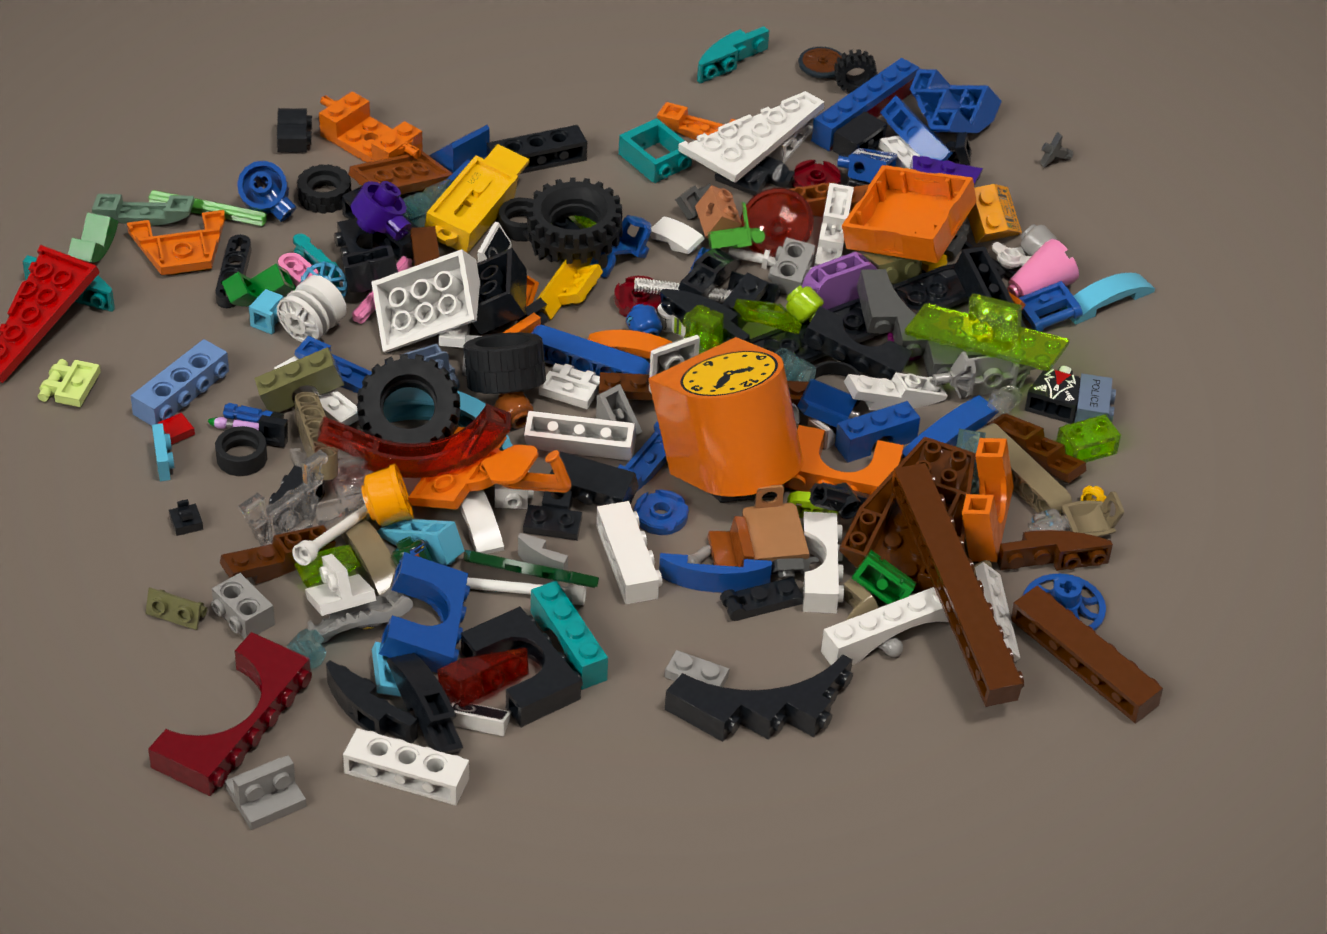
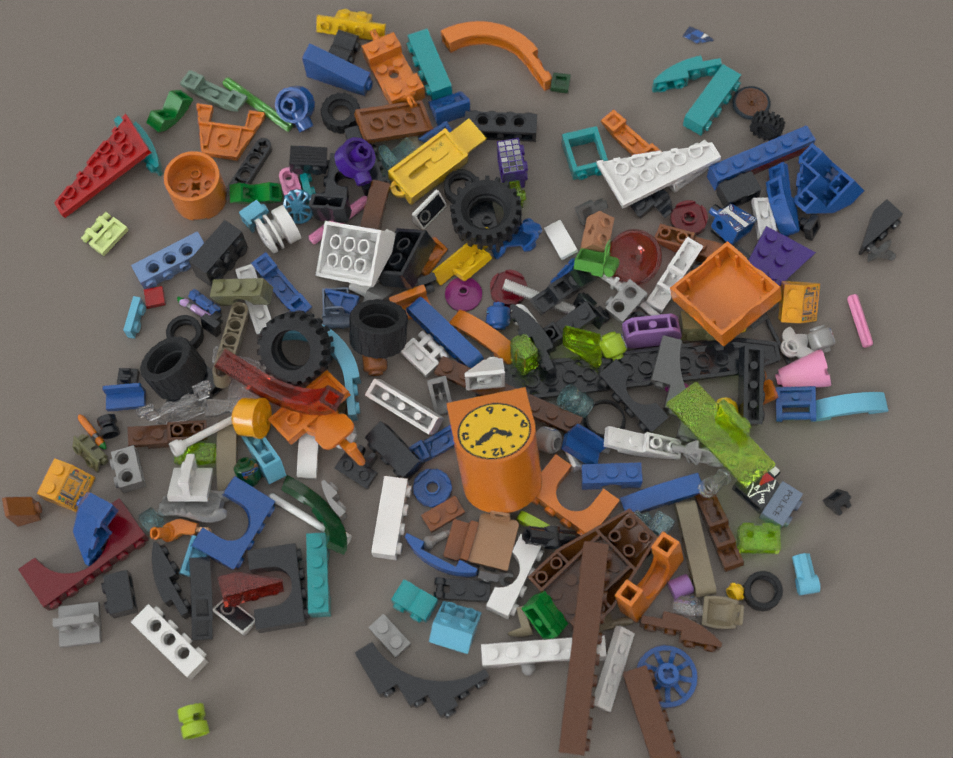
camera: 30 degrees right, 25 degrees up
(116, 689) = (22, 510): none -> dark orange slope
(158, 584) = (91, 431): none -> orange piece
(163, 649) = (65, 485): none -> light orange slope
(177, 293) = (195, 185): none -> orange brick
(185, 568) = (108, 426): none -> black wheel
(193, 534) = (124, 396): none -> blue panel
(231, 664) = (91, 526): none -> blue brick
(246, 353) = (219, 253): none -> black brick
(250, 466) = (173, 368): none -> black tyre
(266, 109) = (352, 22): none -> yellow bracket
(297, 147) = (335, 71): none -> blue slope
(308, 735) = (119, 594): none -> black brick
(315, 230) = (308, 160): none -> black brick
(347, 647) = (175, 529): none -> orange arm
(398, 105) = (429, 64): none -> teal brick
(451, 349) = (342, 299): none -> blue tile
(489, 72) = (501, 36): none -> orange arch
(492, 838) = (193, 721): none -> lime wheel
(572, 161) = (511, 161): none -> brick
(584, 319) = (465, 301): none -> magenta dish
(585, 97) = (560, 82): none -> dark green plate
(690, 533) = (443, 514): none -> dark orange plate
(709, 624) = (414, 601): none -> teal brick
(720, 22) = (696, 35): none -> sticker
(777, 67) = (712, 99): none -> teal brick
(778, 633) = (455, 627): none -> medium azure slope
(1023, 512) = (680, 586): none -> medium lavender brick
(1037, 128) = (881, 221): none -> black slope
(1070, 218) = (860, 321): none -> bright pink axle
(1130, 474) = (776, 583): none -> black tyre
(1155, 381) = (836, 500): none -> black tile
(1165, 462) = (805, 580): none -> medium azure piece

